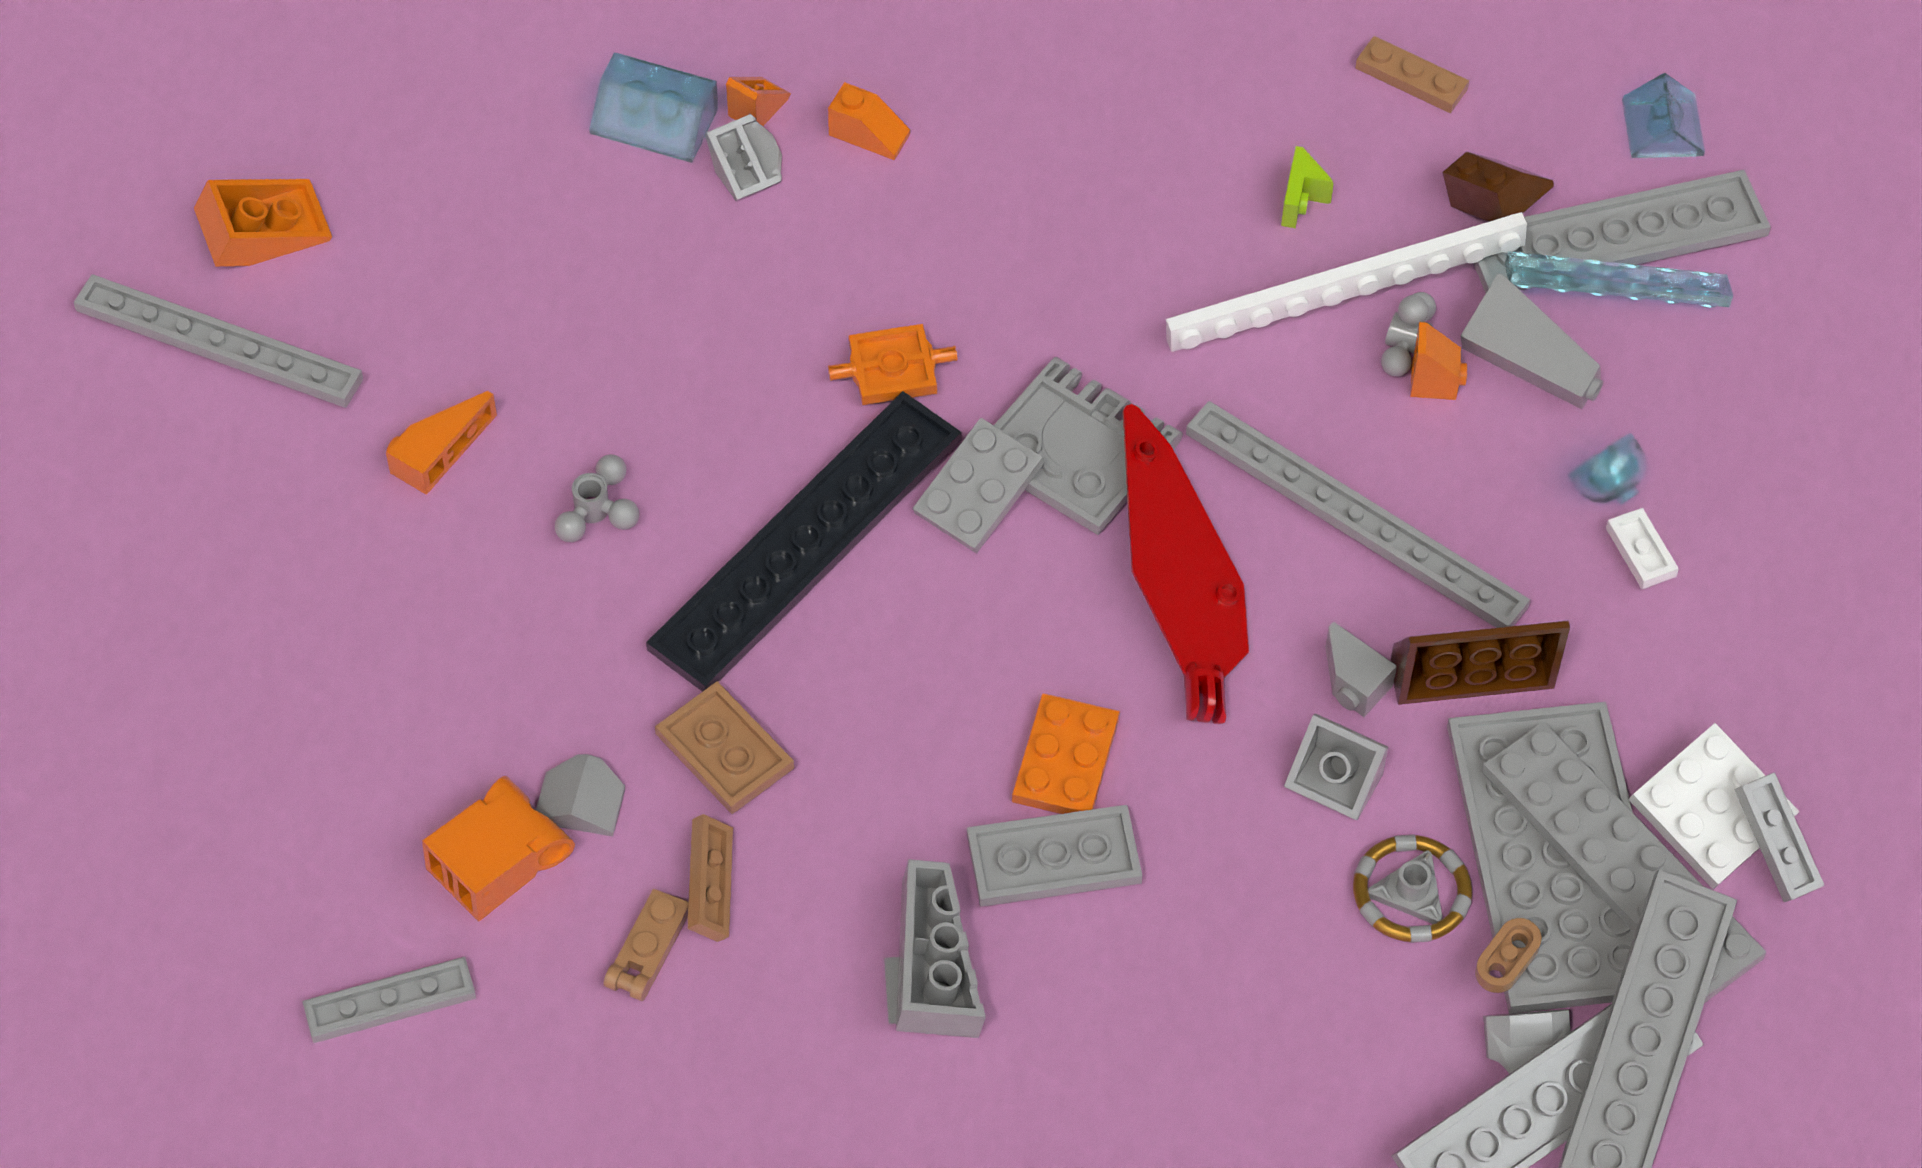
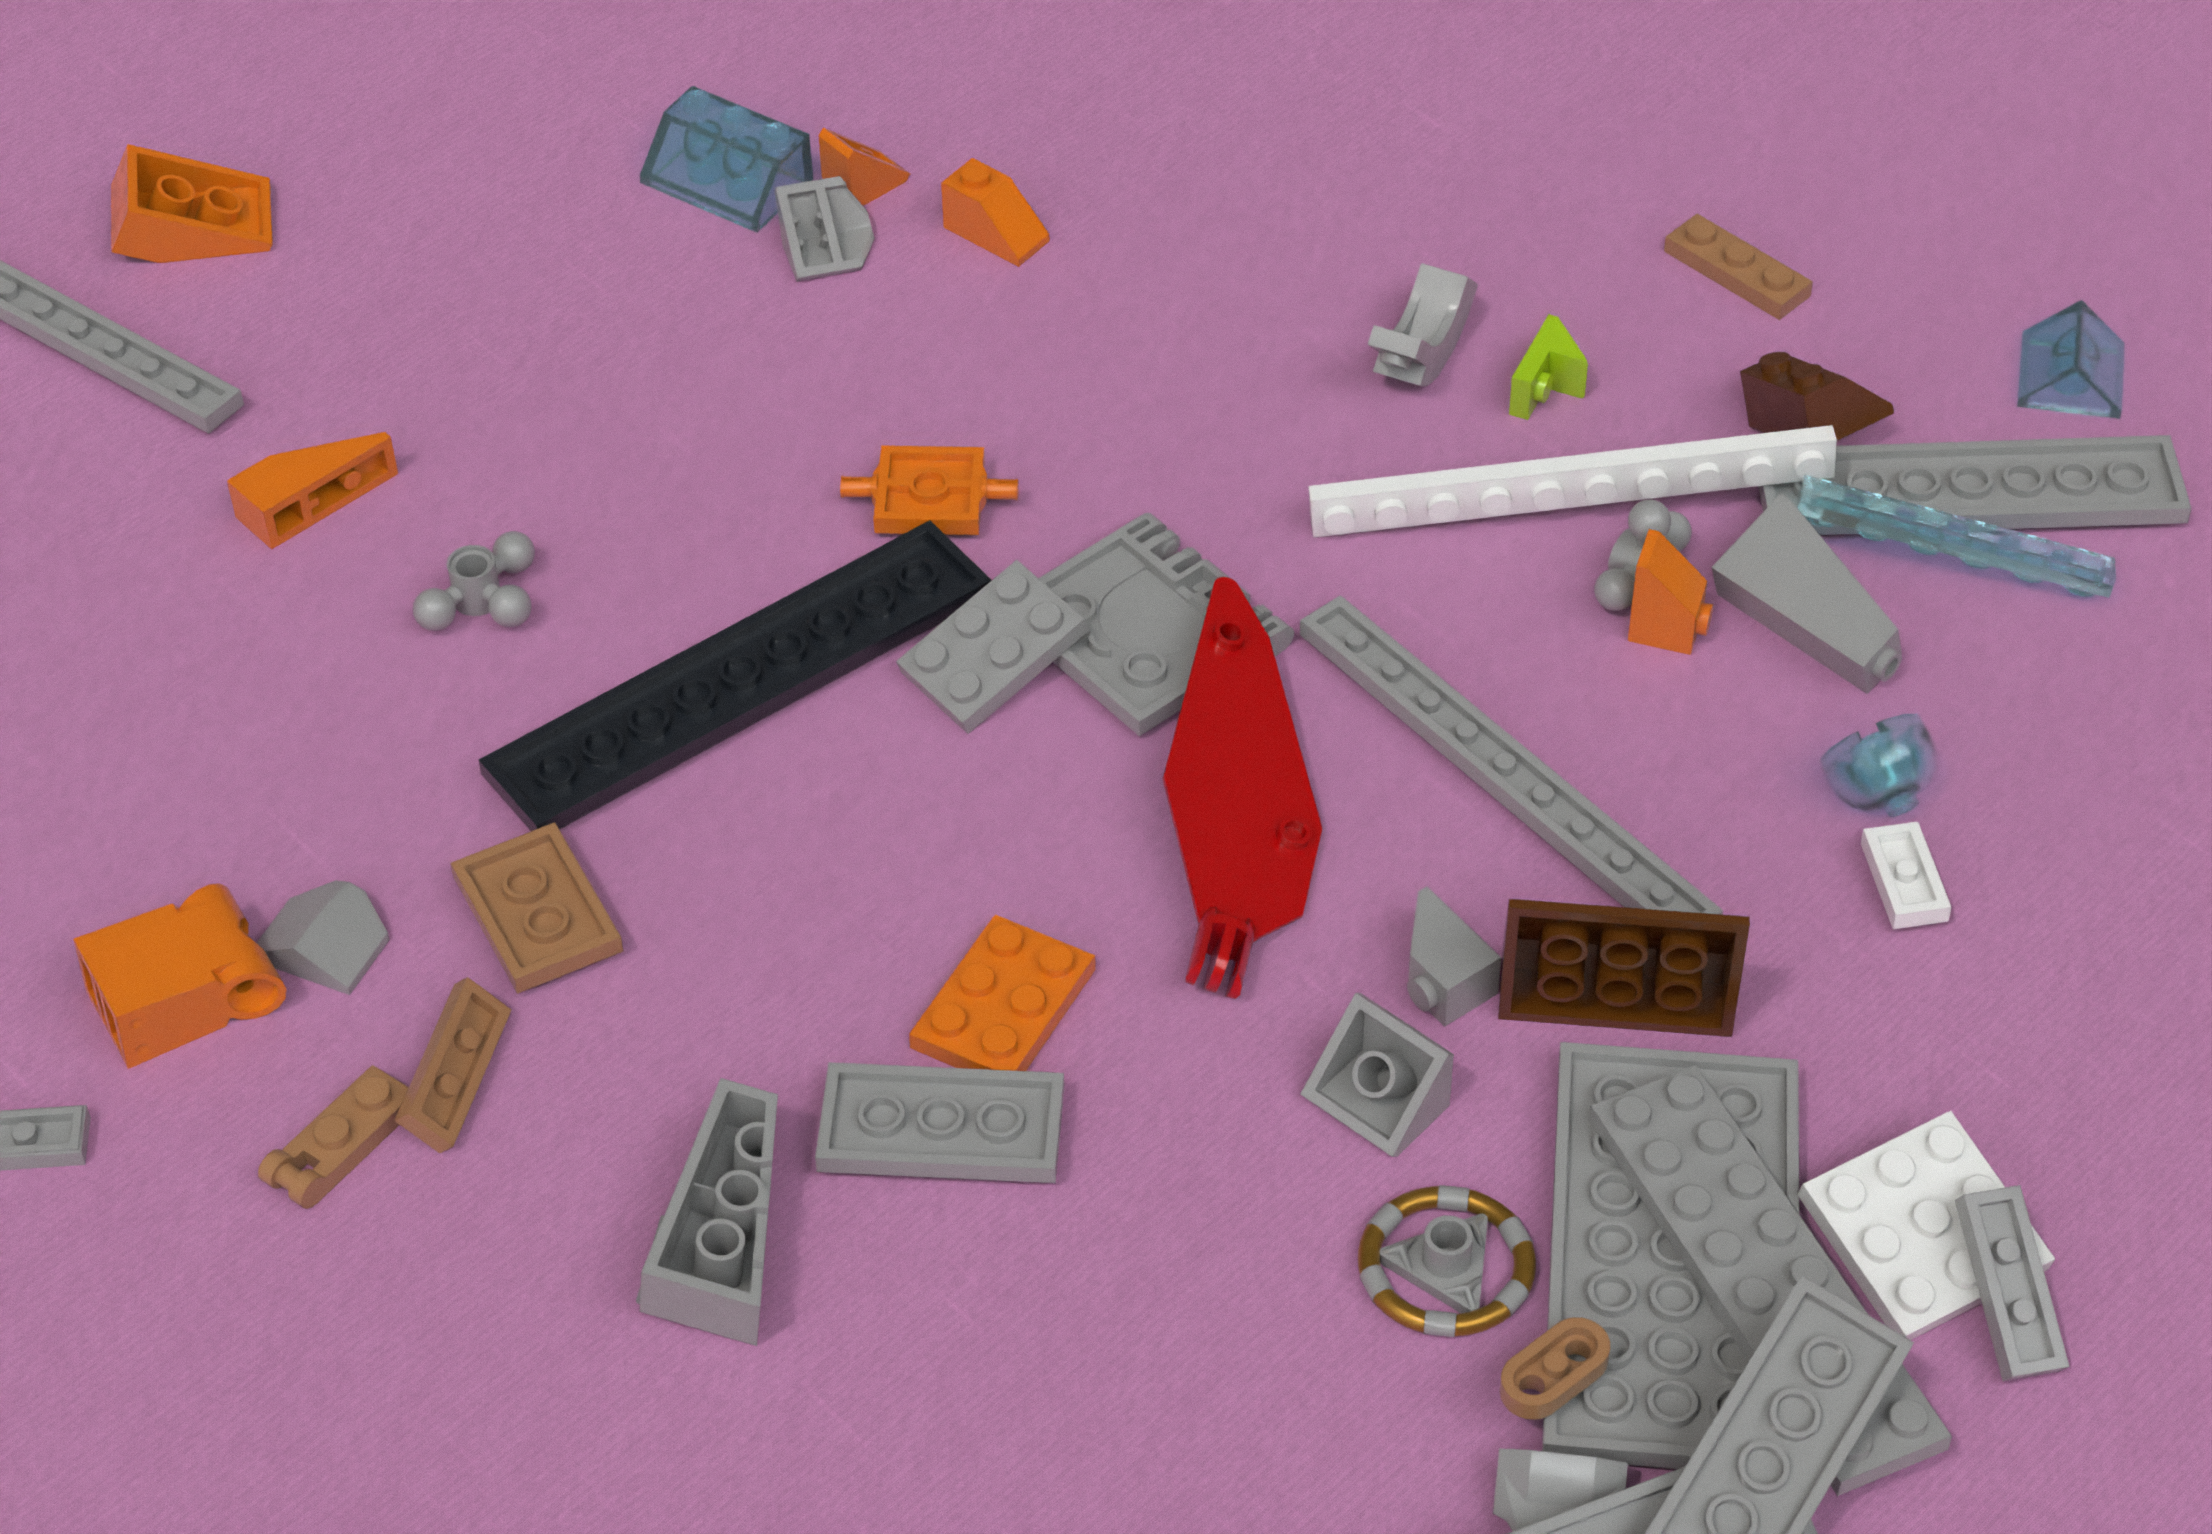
camera: 15 degrees right, 10 degrees down
(1209, 169) = (1427, 329): none -> light grey arch

